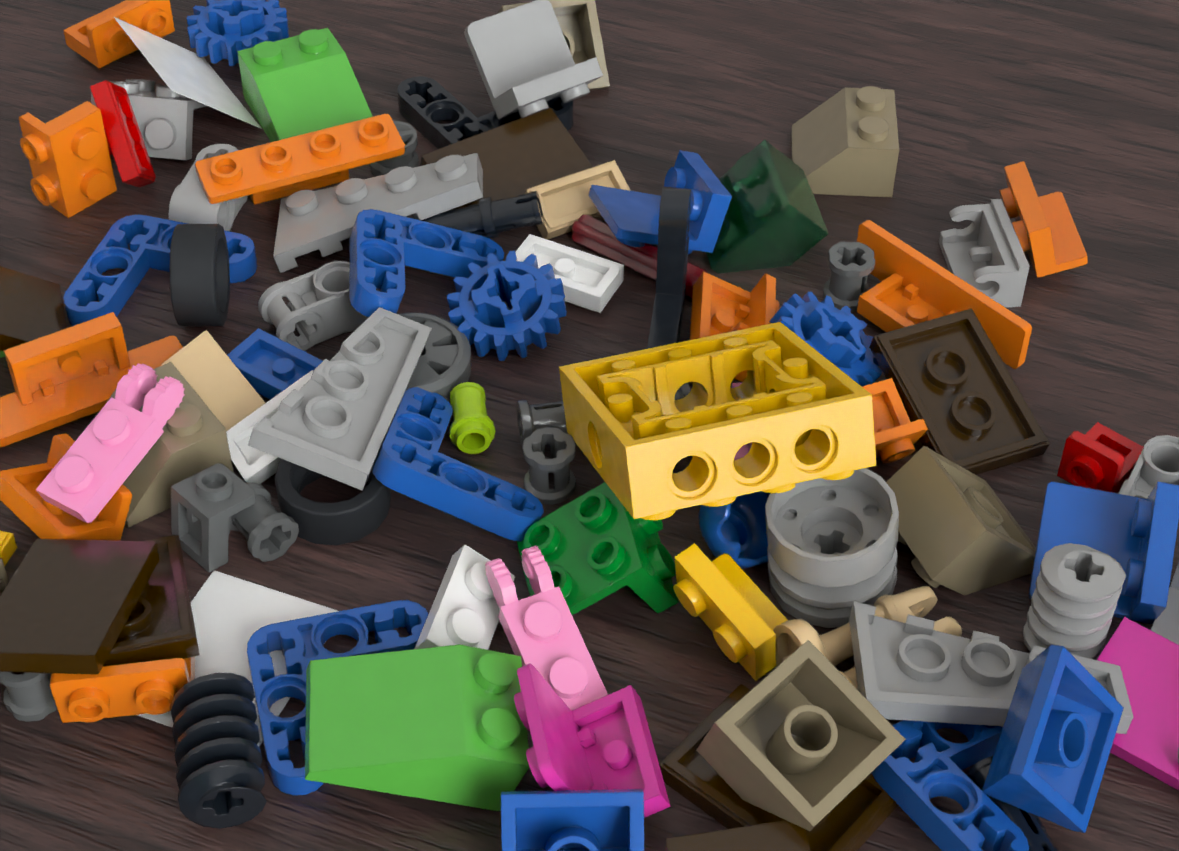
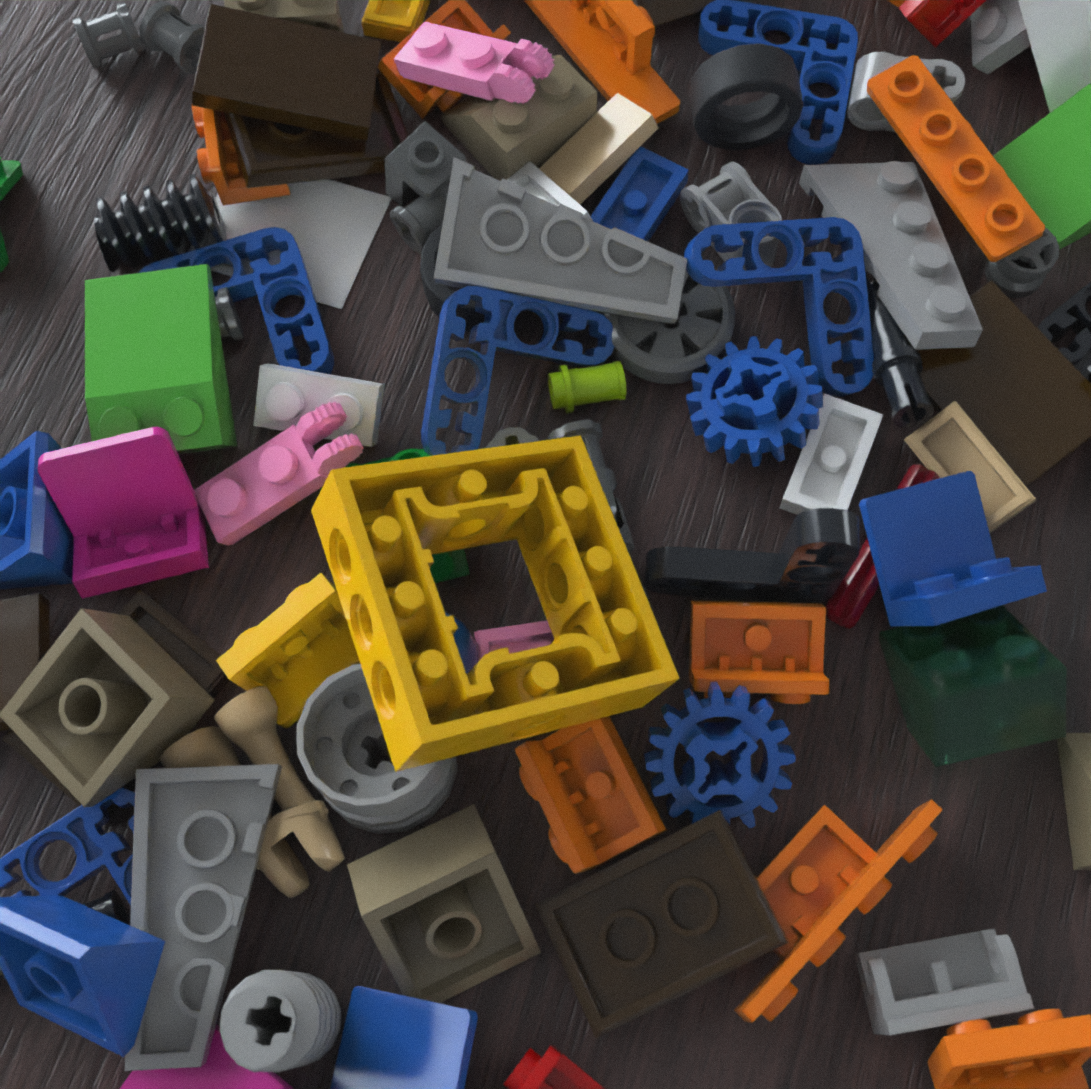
camera: 90 degrees right, 25 degrees up
(849, 273) = (887, 799): dark grey bush -> none

